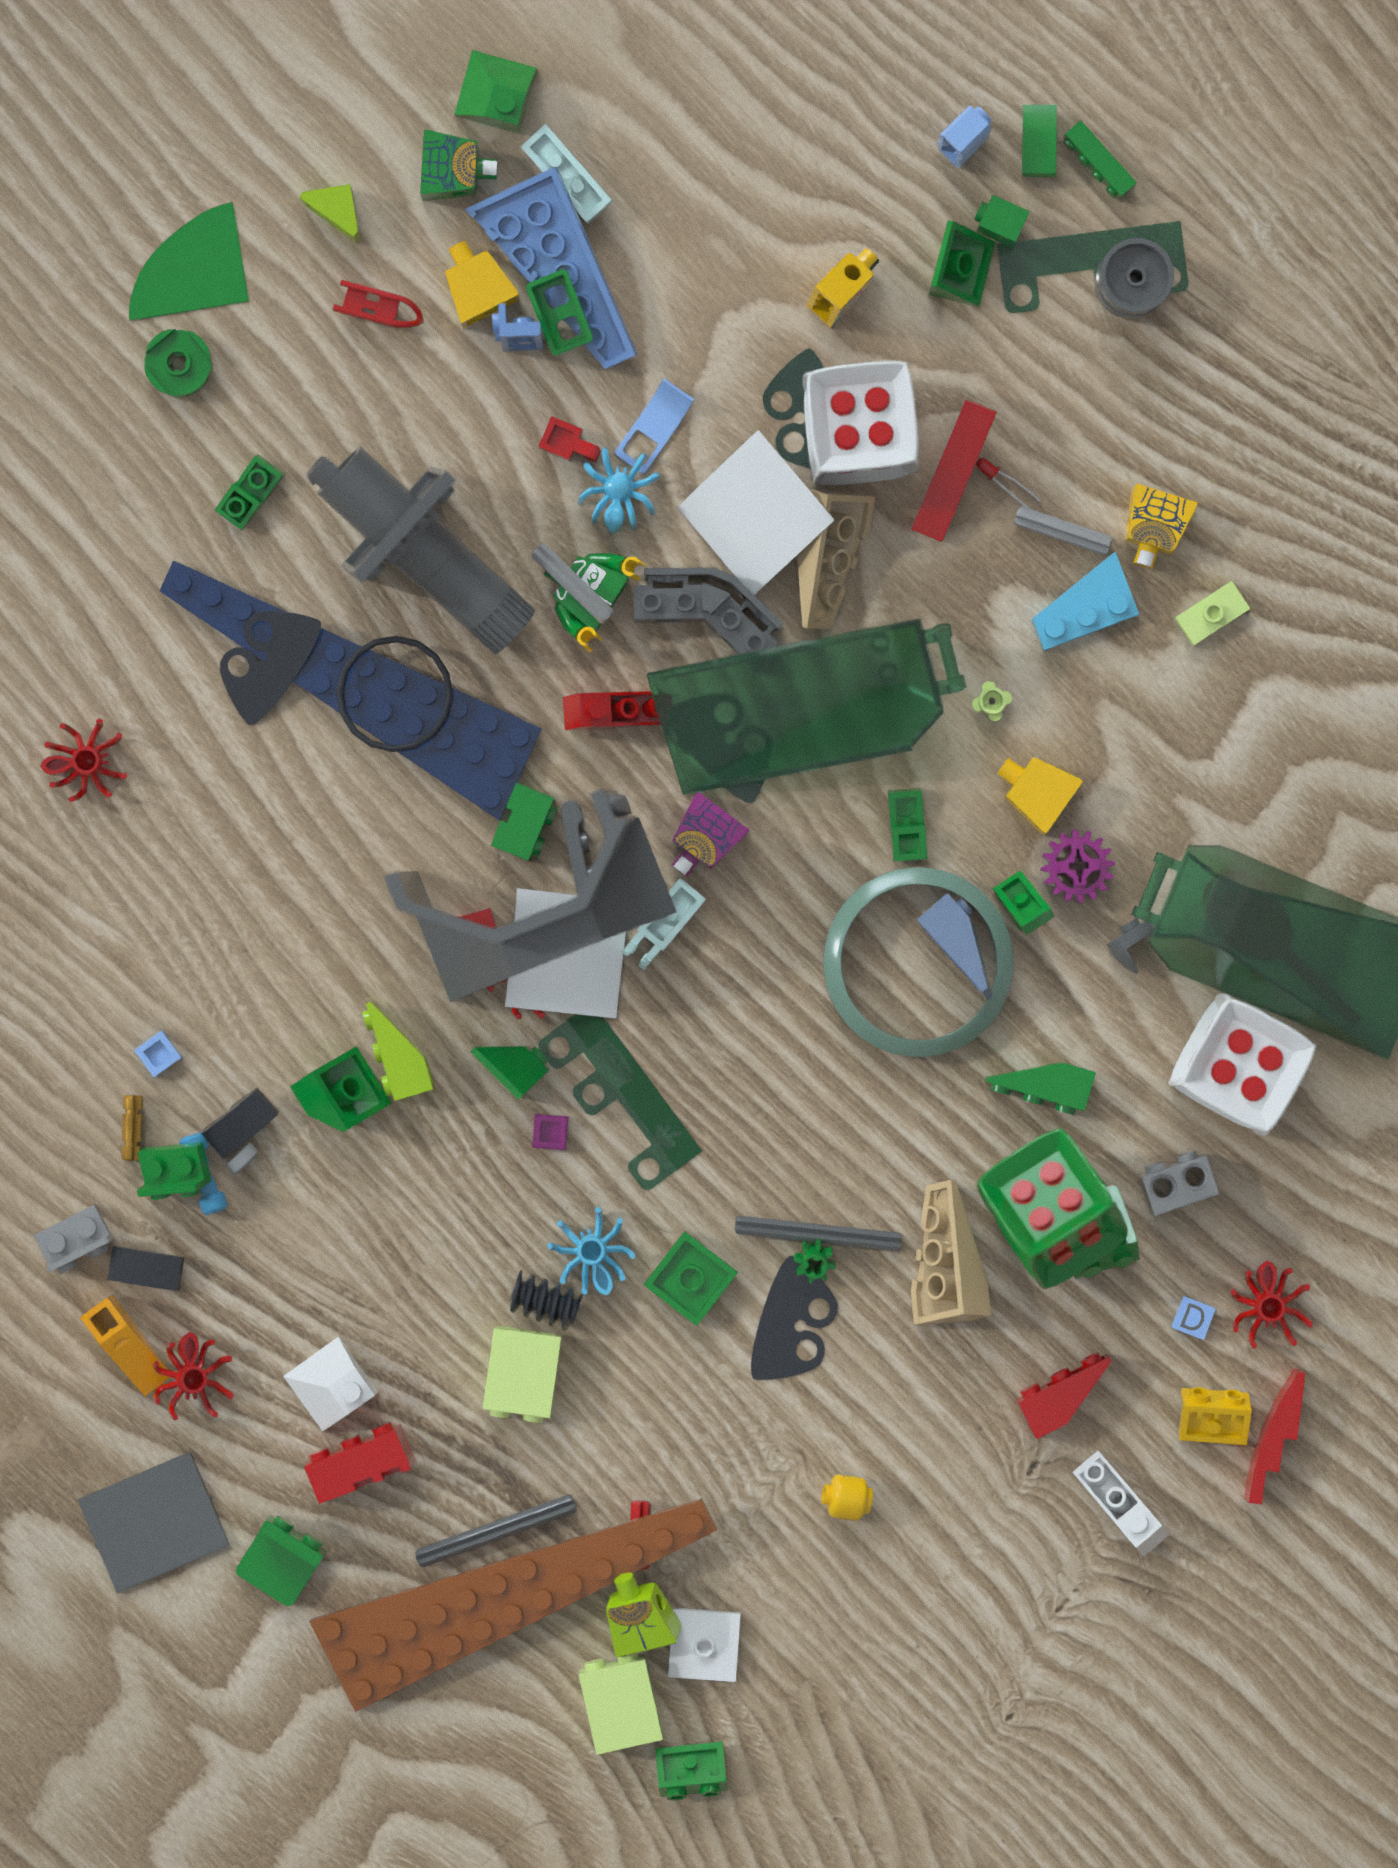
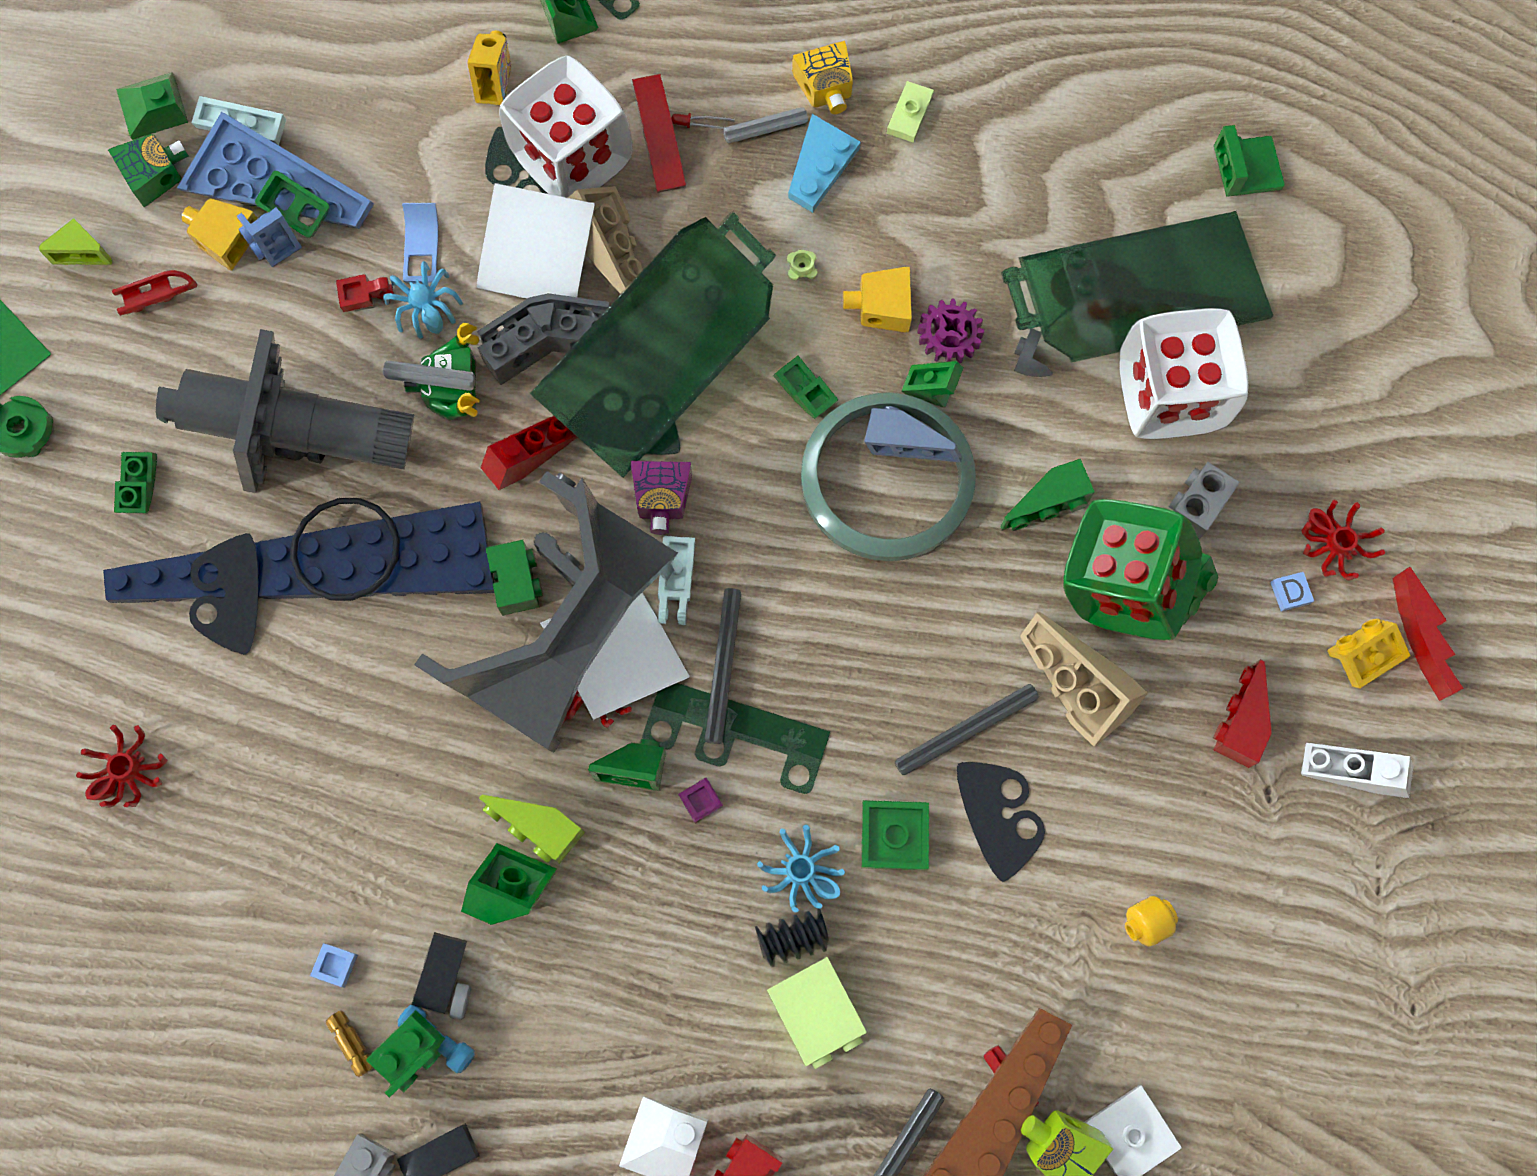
camera: 35 degrees left, 15 degrees down
(651, 1030) = (723, 666): none -> dark grey axle
(818, 1253) = (977, 759): green gear -> none

